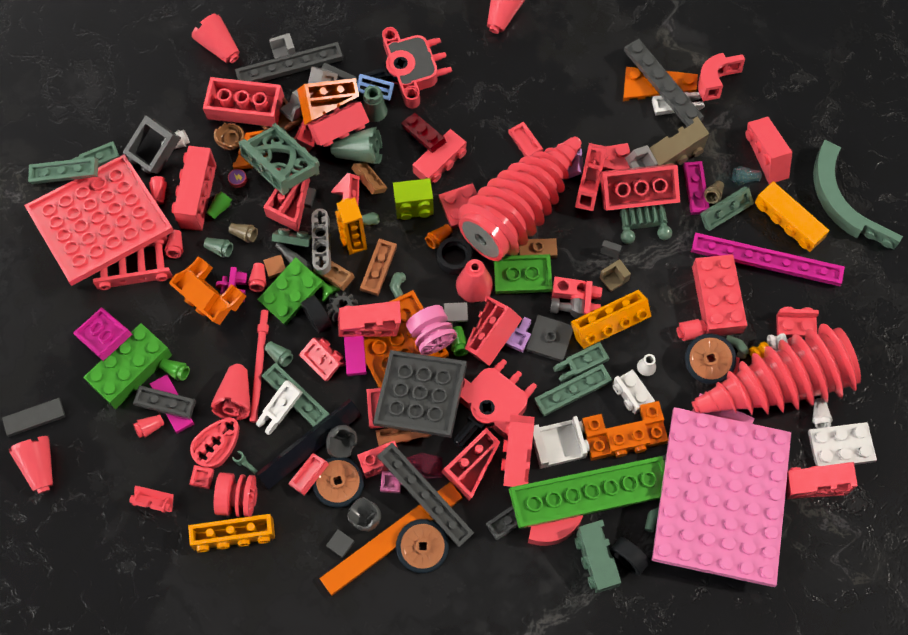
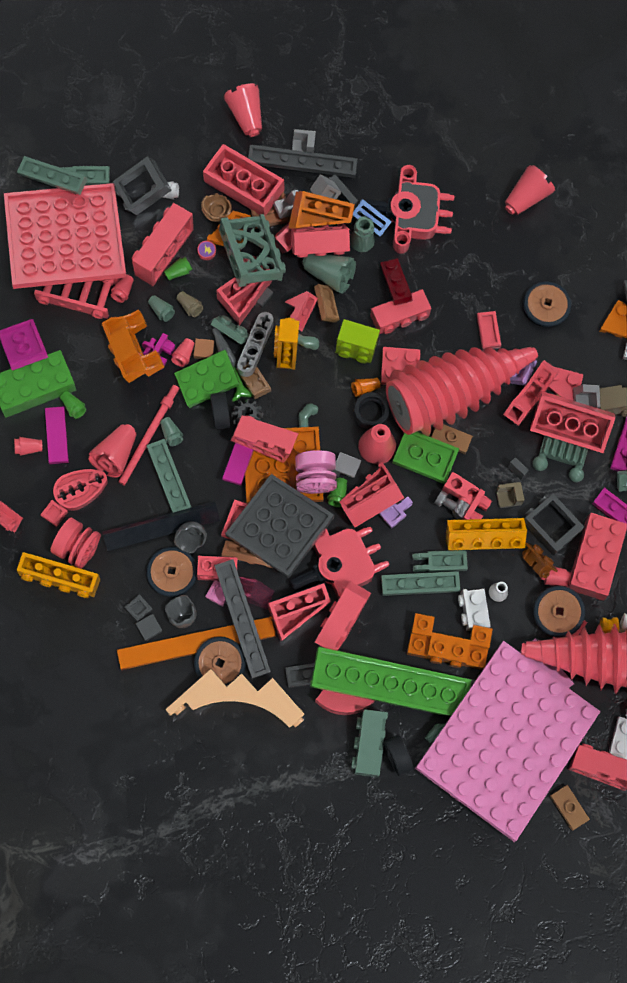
camera: 15 degrees right, 5 degrees up
(158, 189) = (130, 229): coral cone -> none
(164, 402) = (50, 431): dark grey tile -> none
(243, 461) = (96, 515): sand green hand -> none
(279, 406) = (150, 480): white hinge -> none
(308, 474) = (148, 553): coral tile -> none
(322, 357) = (208, 453): coral bracket -> none
(322, 530) = (138, 608): none -> dark grey tile
(378, 267) = (297, 391): nougat plate -> none
(427, 574) = (211, 690): none -> light nougat arch
(550, 338) = (422, 526): dark grey plate -> none
(560, 443) = (385, 626): white panel -> none
(570, 106) = (545, 314): none -> nougat wheel
(660, 298) = (541, 535): none -> dark grey window
(676, 322) = (533, 556): none -> dark orange hinge
(739, 345) = (594, 611): sand green arm -> none
(806, 533) = (569, 807): none -> medium nougat plate

